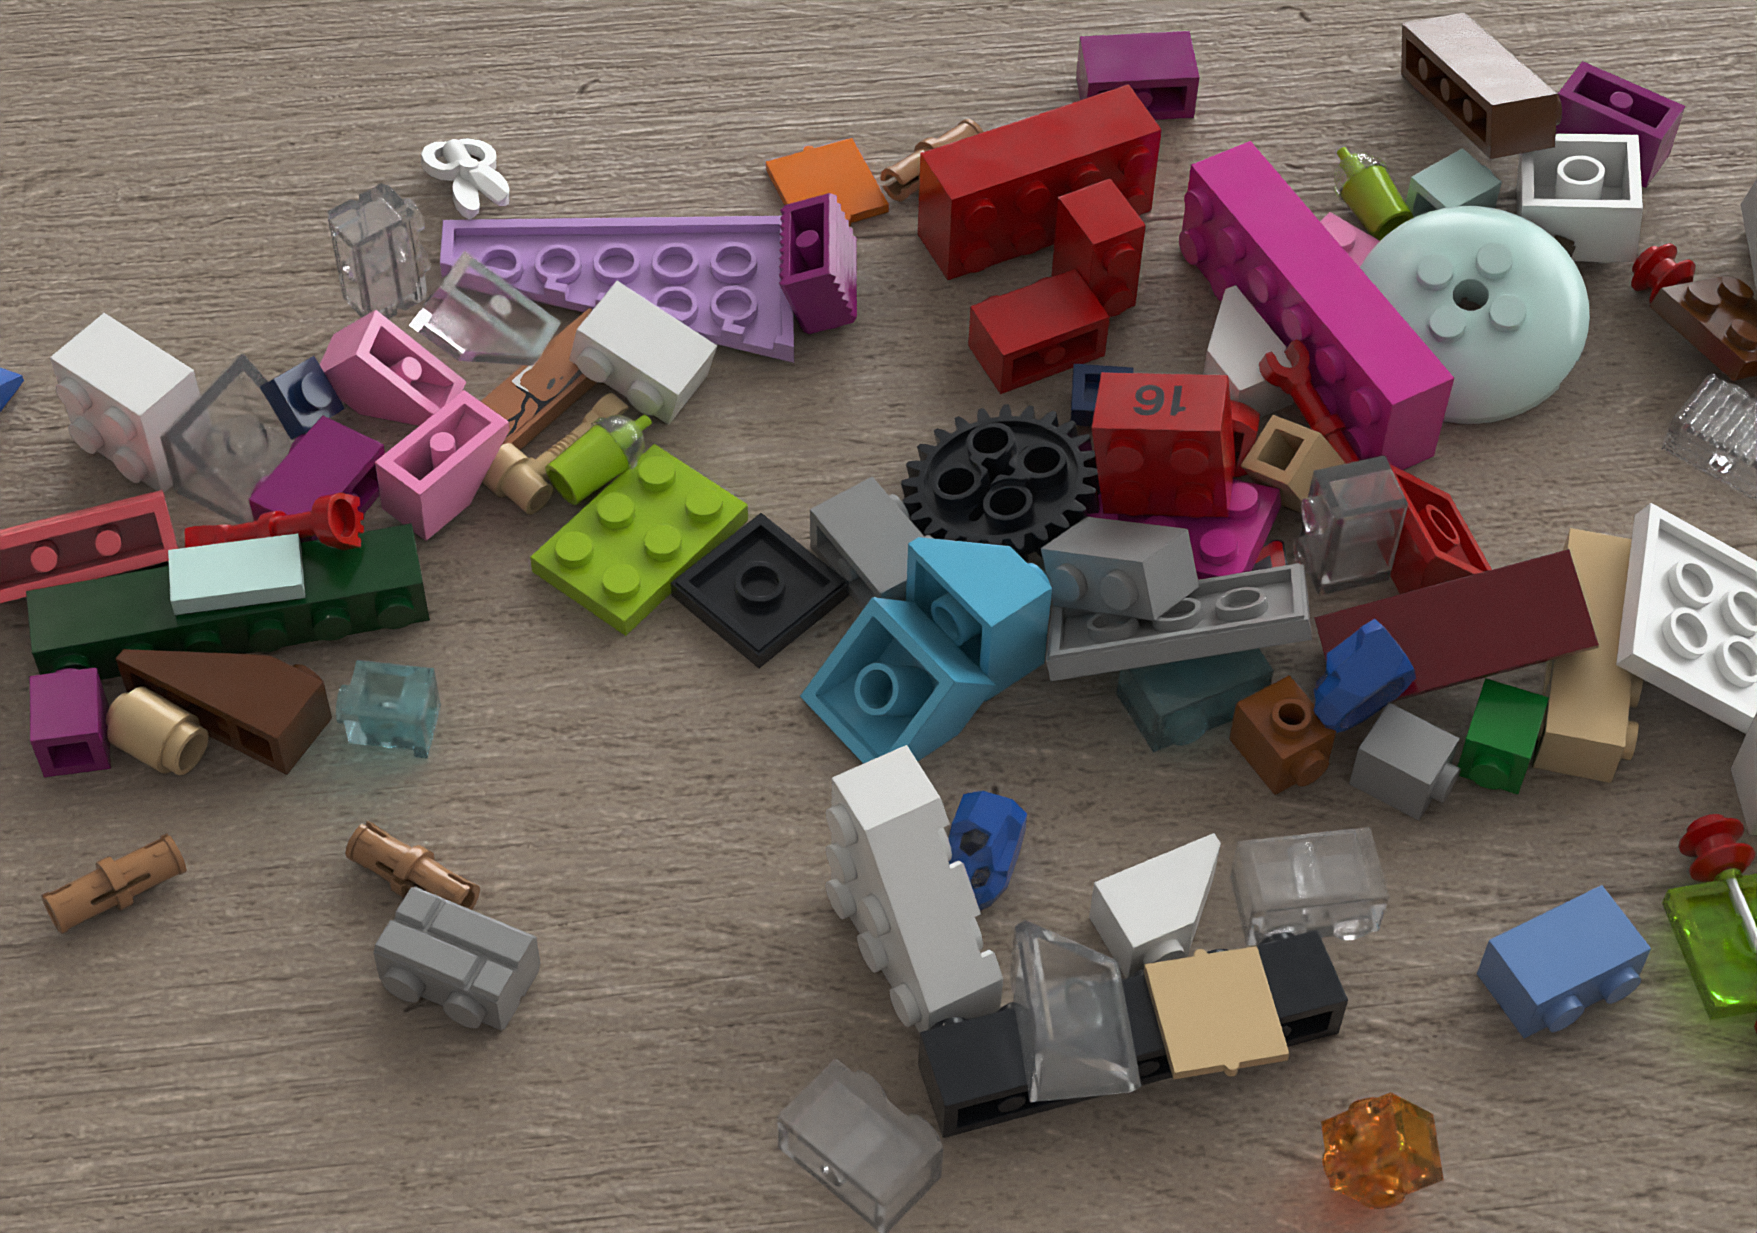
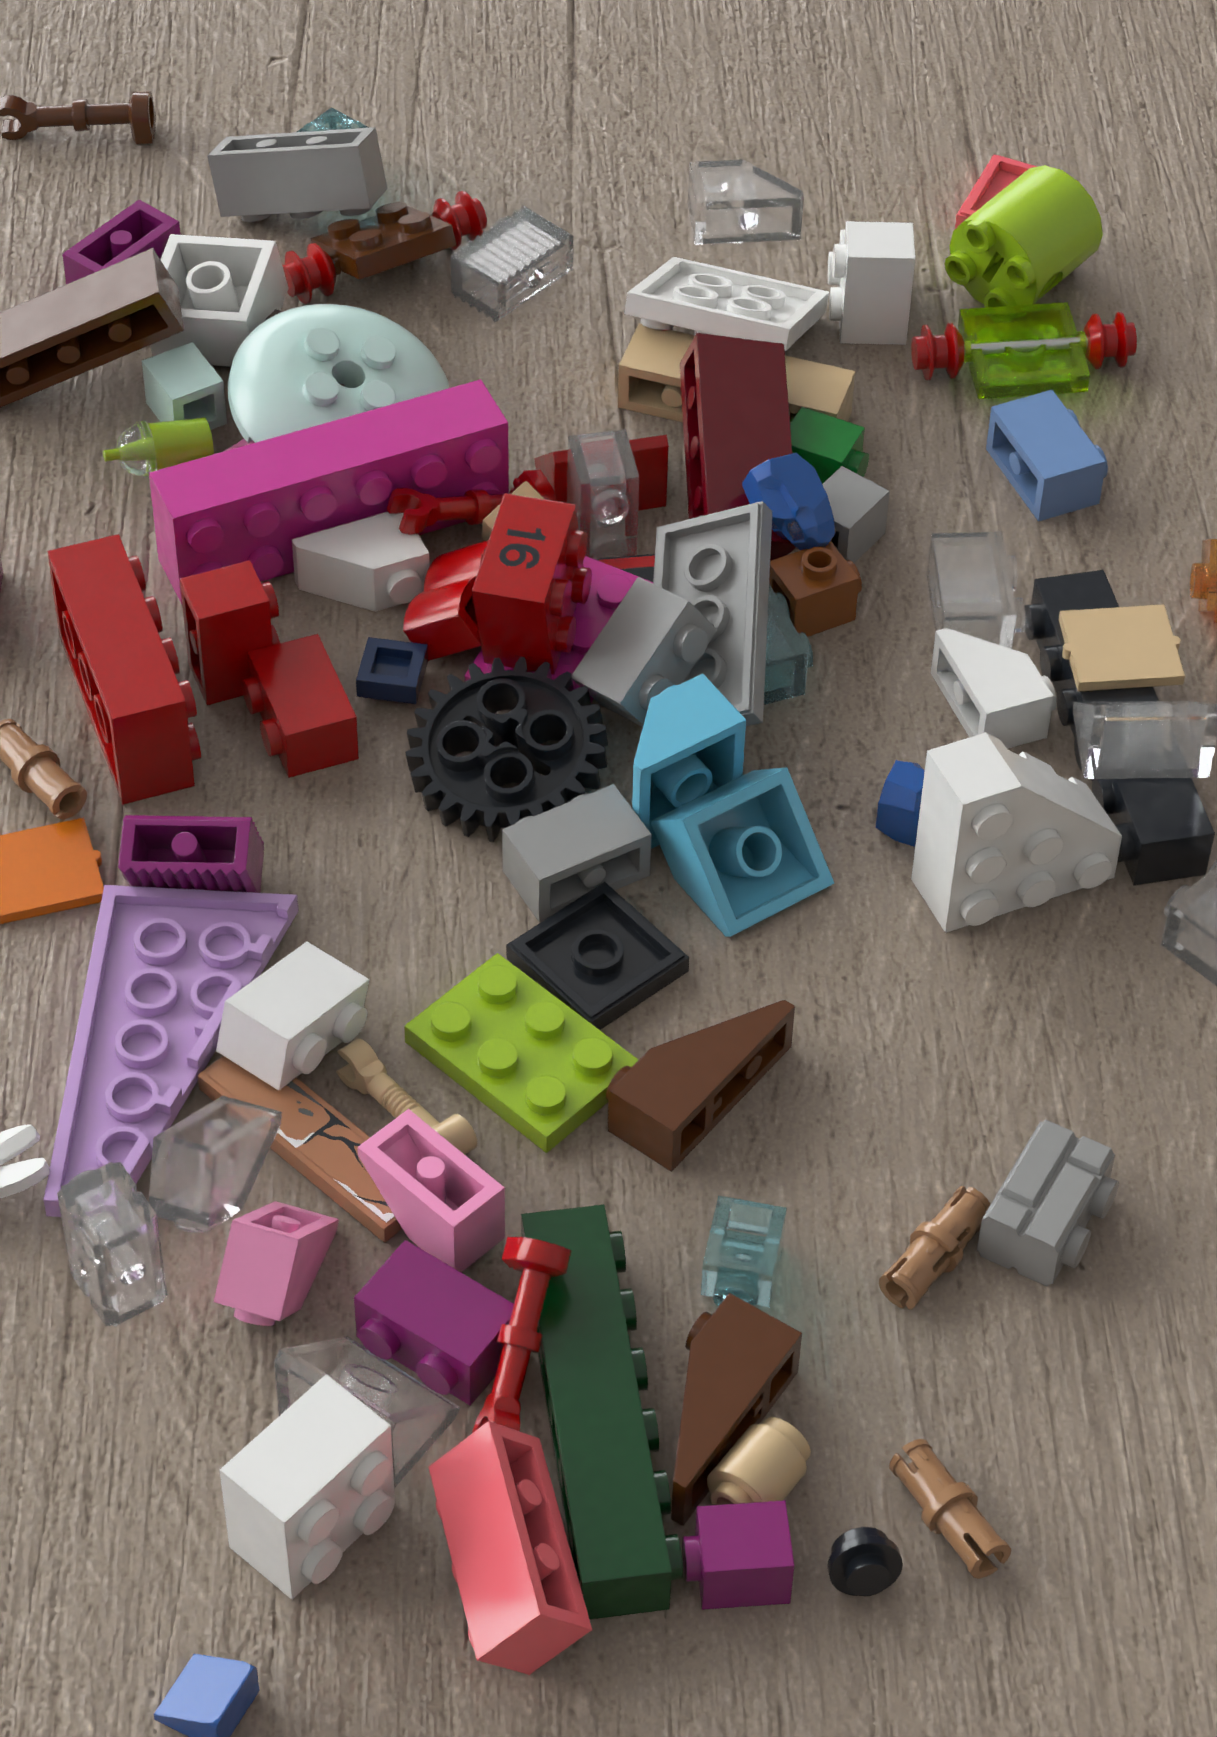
camera: 85 degrees left, 5 degrees down
(57, 815) = (864, 1562): none -> black plate
(236, 574) = (589, 1364): light aqua tile -> none
(302, 397) = (315, 1321): dark blue plate -> none
(585, 656) = (694, 1081): none -> reddish brown slope
(598, 456) = (425, 1066): lime piece -> none

